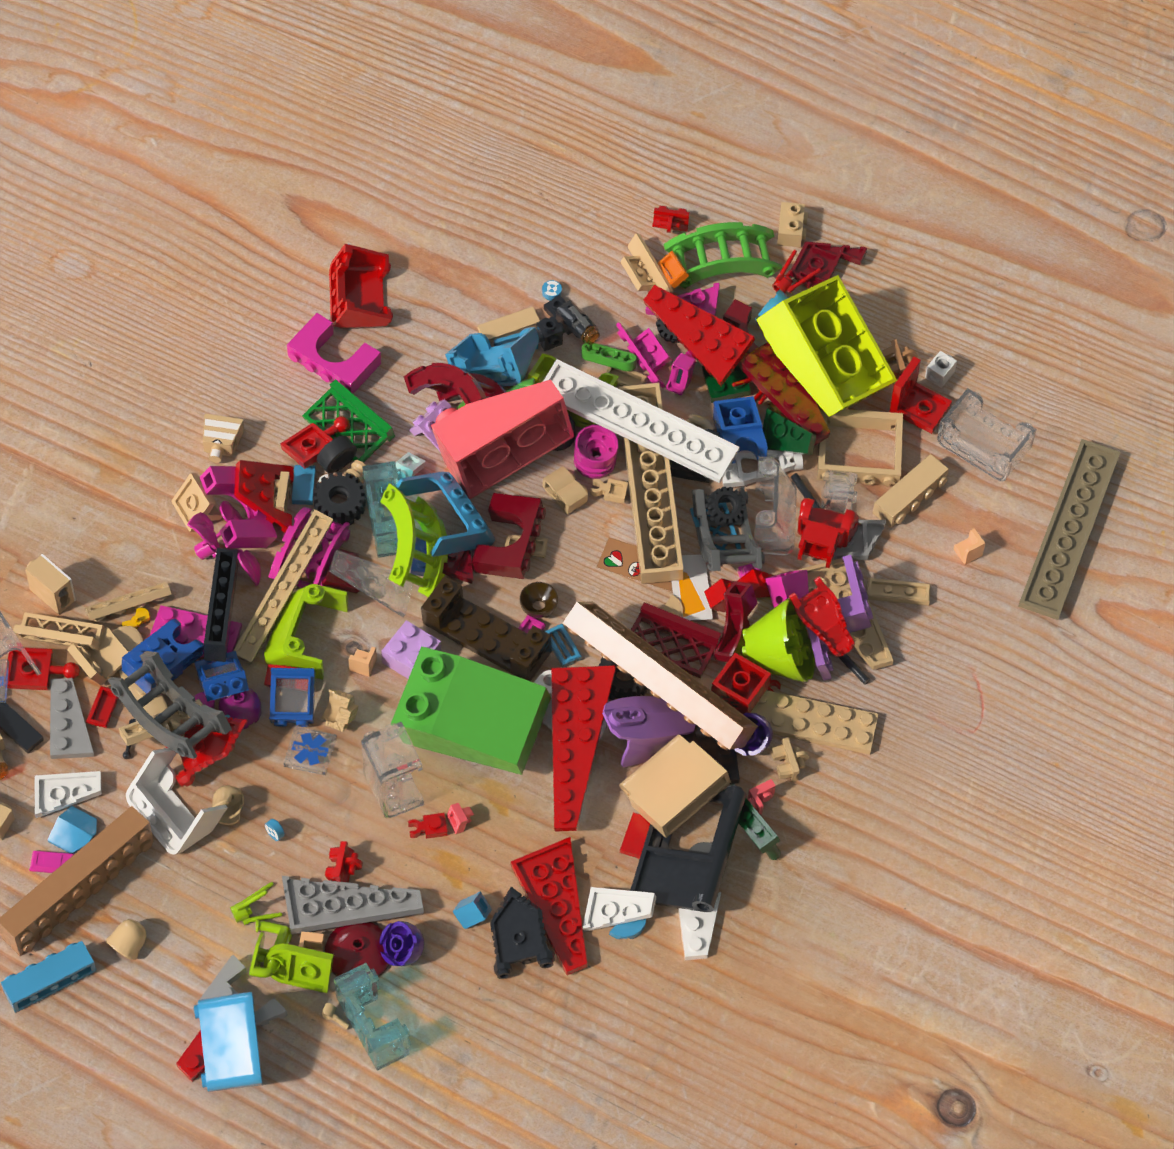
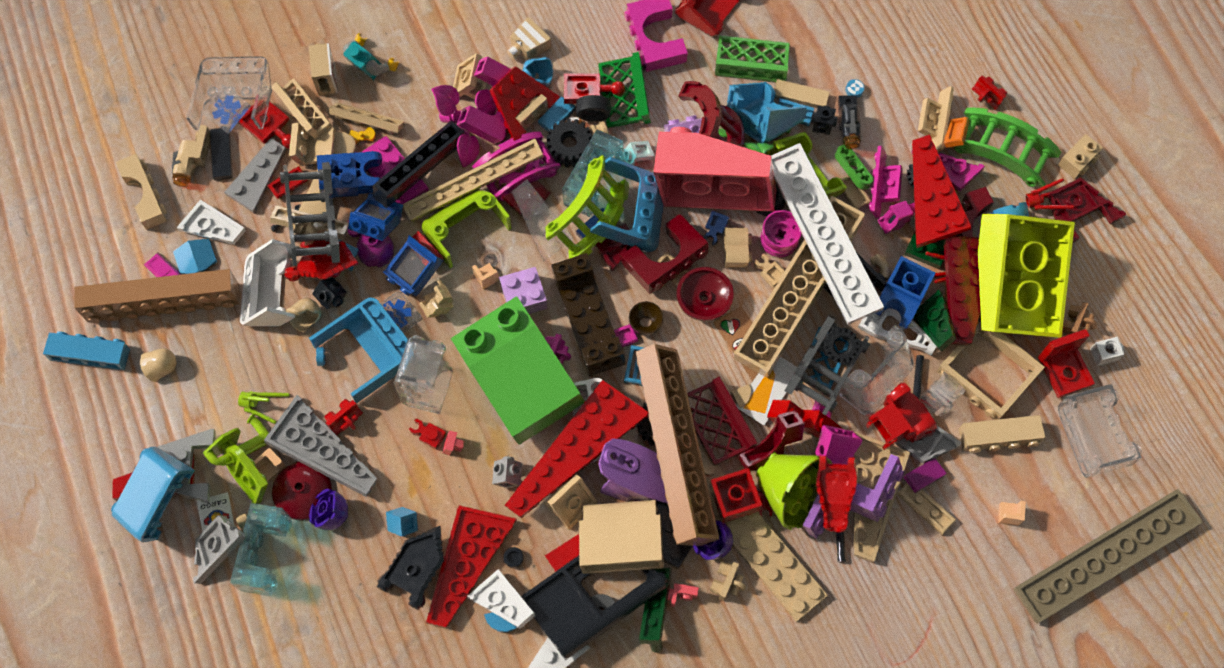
camera: 40 degrees right, 10 degrees up
(80, 550) = (365, 60): none -> torso
(236, 770) = (329, 293): none -> black brick
(255, 452) = (541, 66): none -> dark azure hair
(298, 1027) = (217, 506): none -> white sticker
(314, 776) = (376, 335): none -> dark azure windscreen
(327, 1043) = (215, 545): none -> light grey wing
(446, 331) = (752, 69): none -> bright green fence
(530, 805) = (507, 472): none -> light grey brick
(531, 483) = (716, 225): none -> dark blue plate
(573, 535) = (705, 283): none -> dark red dish
(594, 871) = (513, 557): none -> black tile
(604, 790) = (569, 501): none -> tan bracket
(877, 566) = (924, 475): none -> magenta tile

